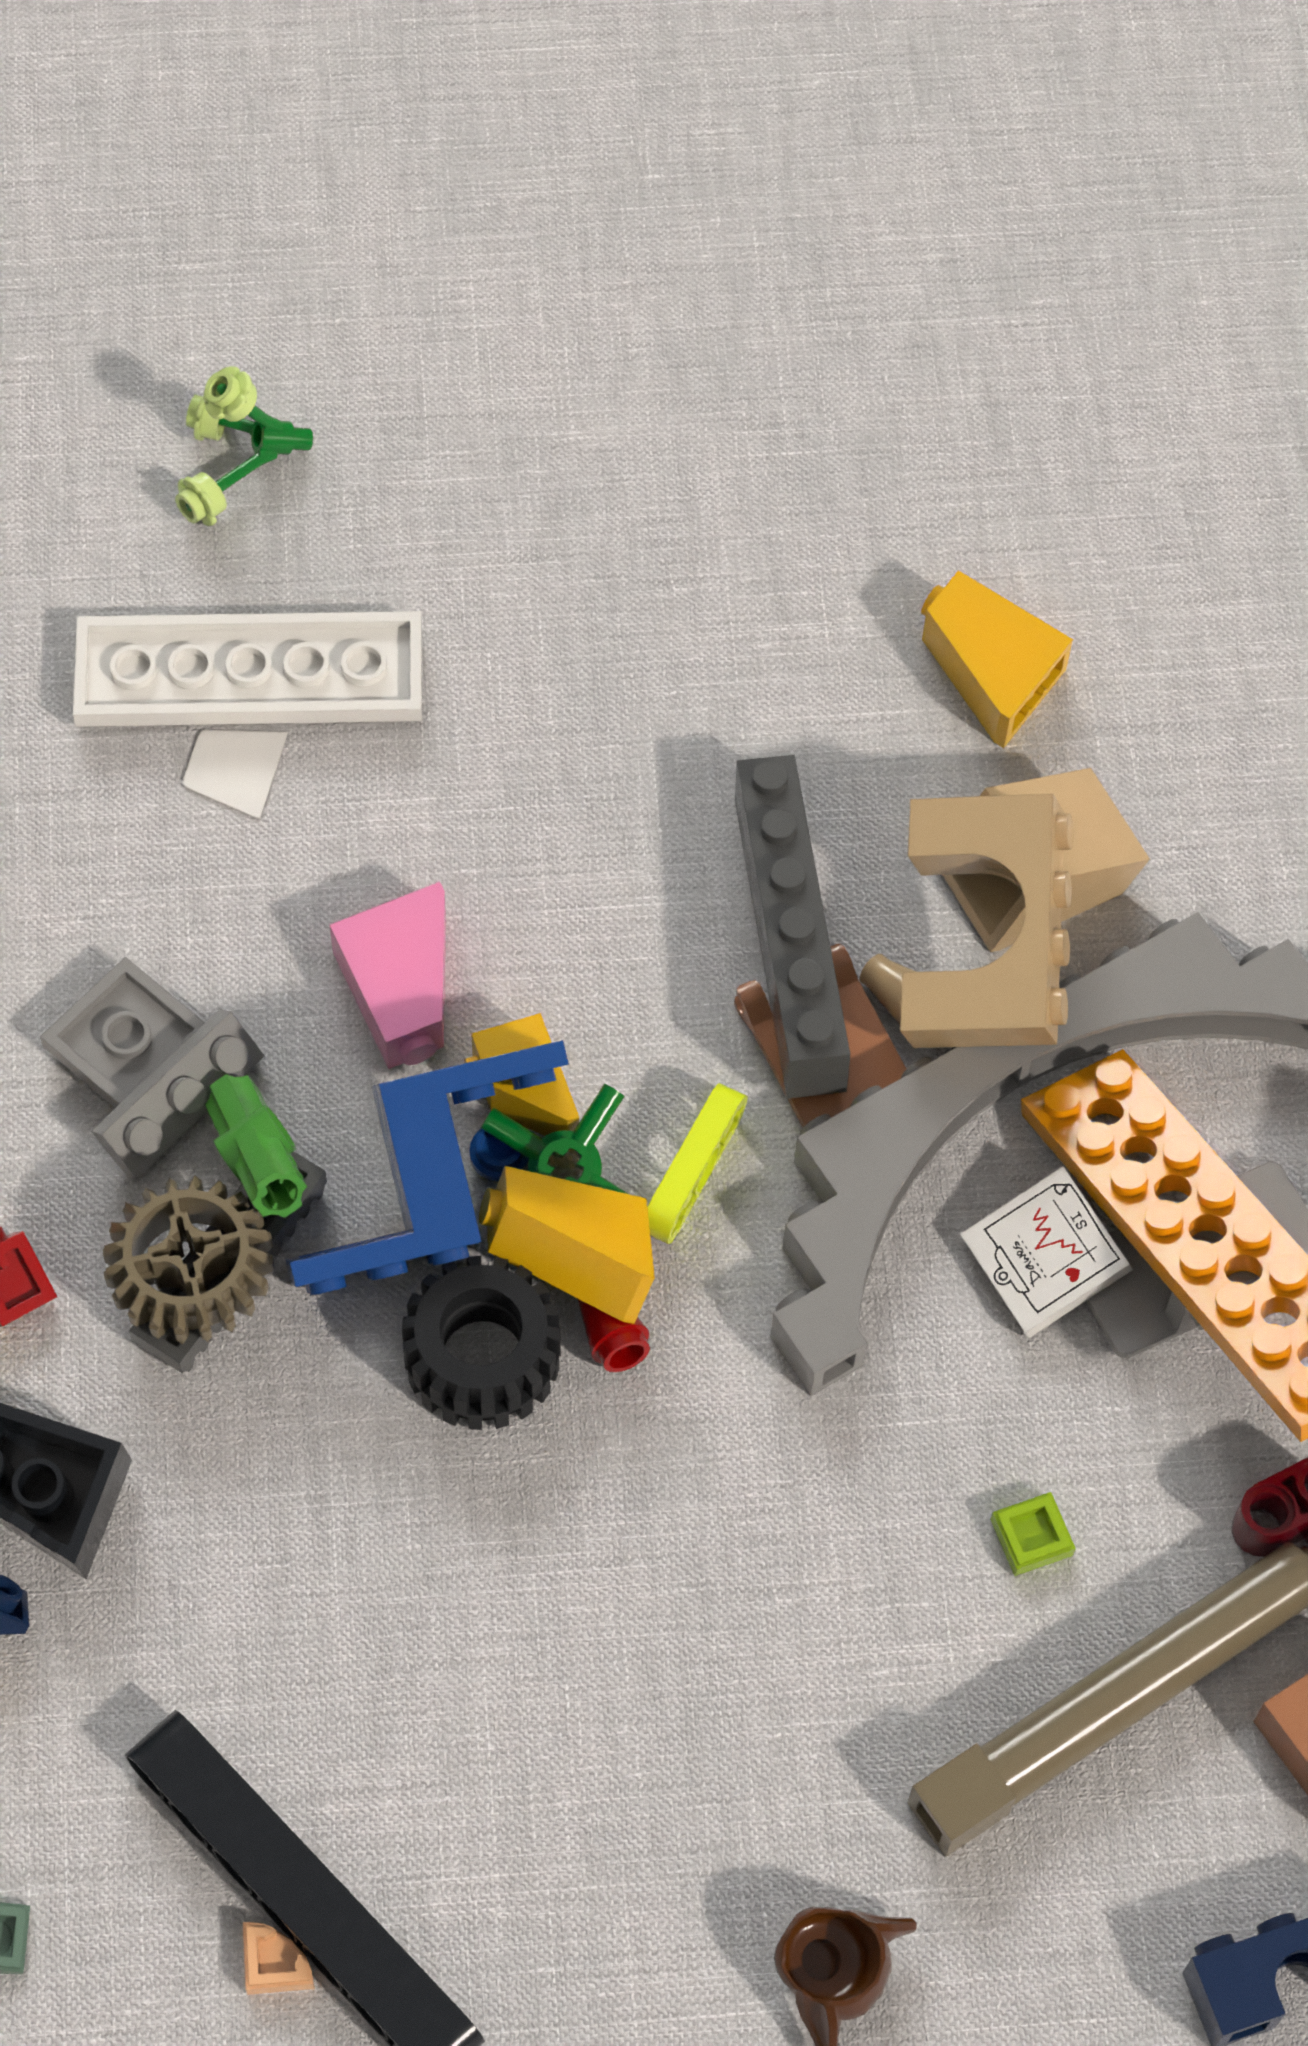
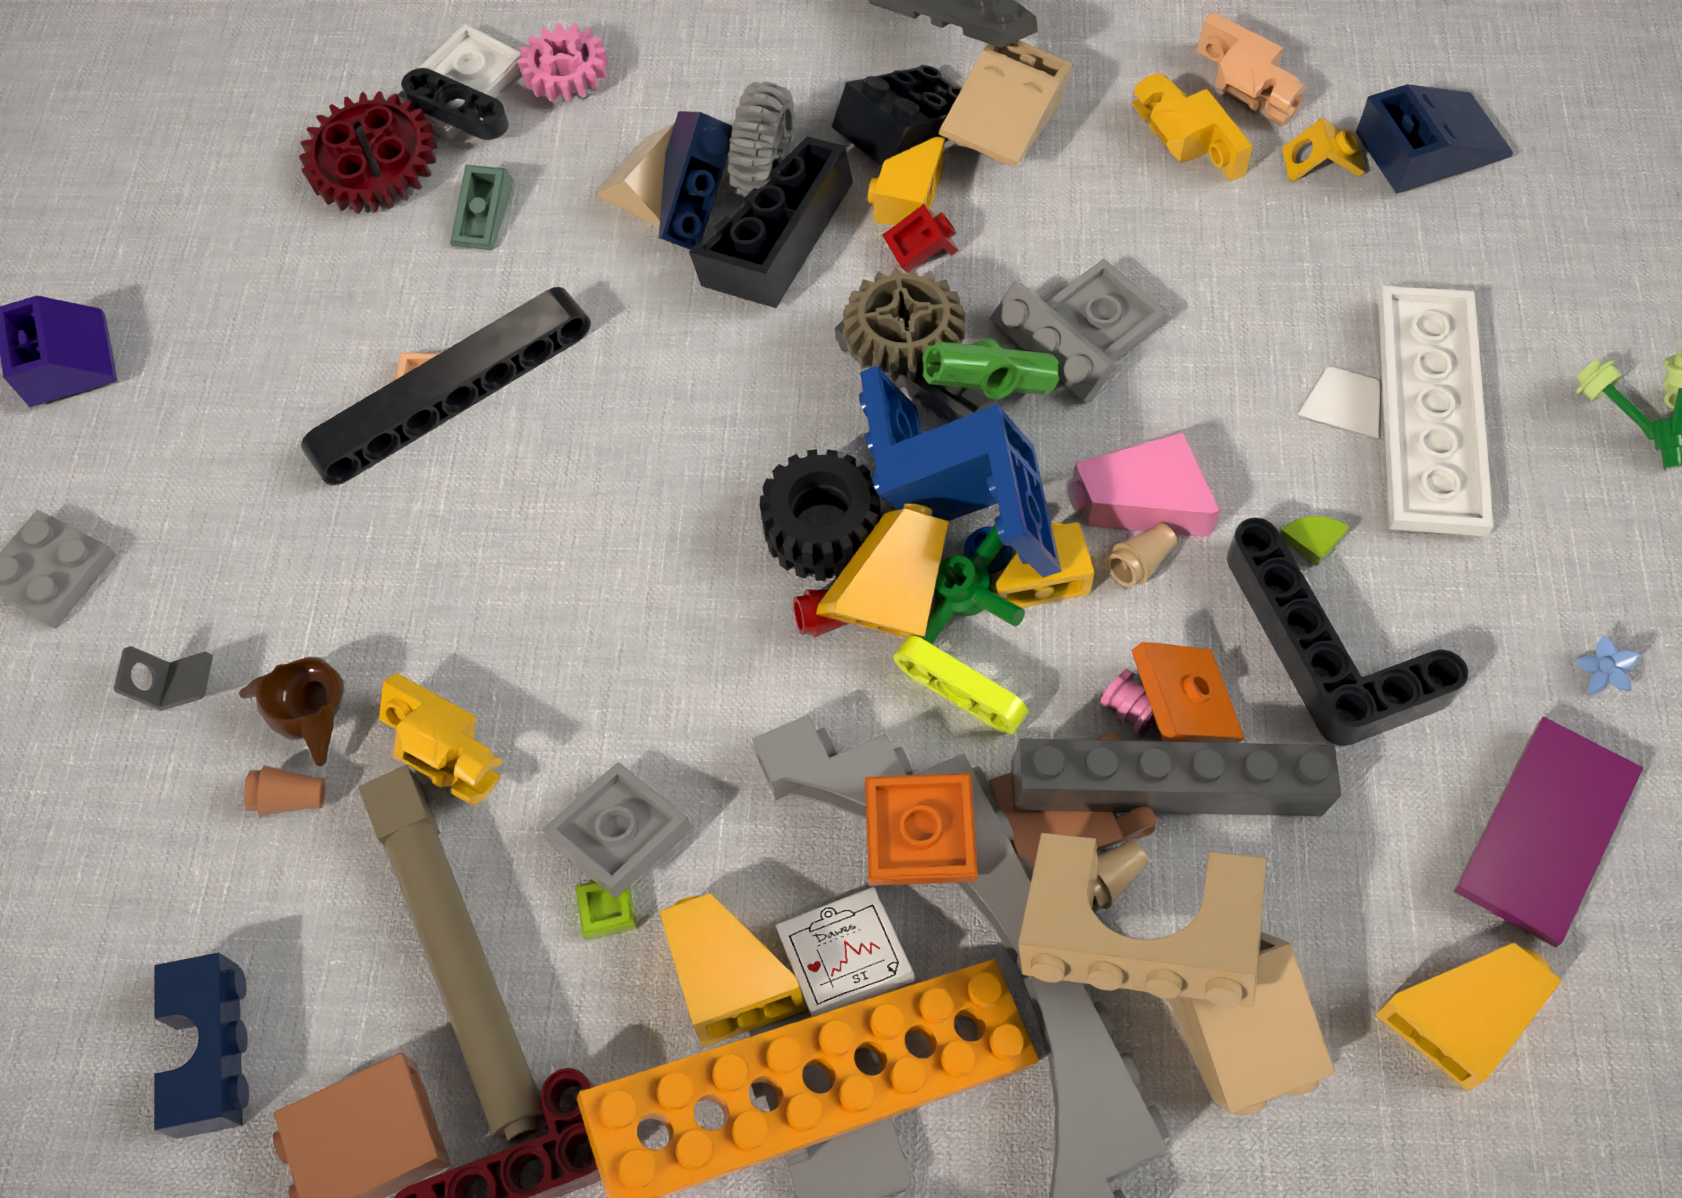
camera: 105 degrees right, 0 degrees up
(442, 797) = (1314, 536): none -> lime tile
(494, 978) = (1139, 556): none -> tan cone
(583, 517) = (1608, 666): none -> light blue plant
(590, 785) = (1324, 648): none -> black beam
(683, 914) = (1187, 693): none -> orange plate
(692, 975) = (1130, 702): none -> bright pink bush
(783, 580) = (1549, 831): none -> magenta tile
(865, 1766) = (438, 739): none -> yellow plate
(907, 1164) = (920, 829): none -> orange plate
(944, 1524) = (616, 829): none -> light grey plate
(959, 1968) = (282, 791): none -> nougat cone
(1093, 1371) = (726, 971): none -> yellow slope

